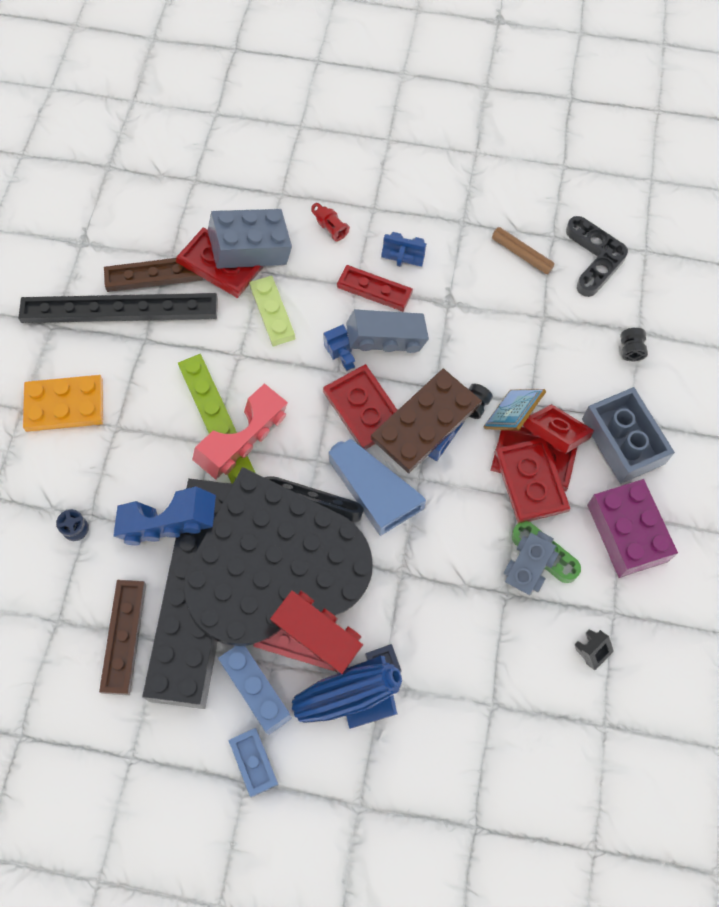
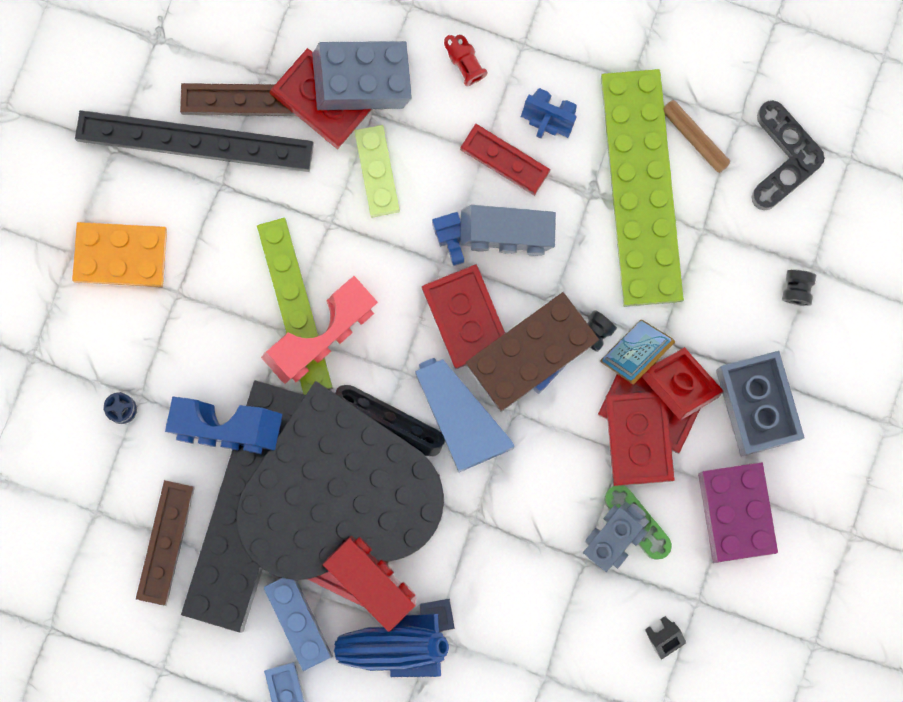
camera: 10 degrees right, 15 degrees up
(489, 296) = (641, 188): none -> lime plate

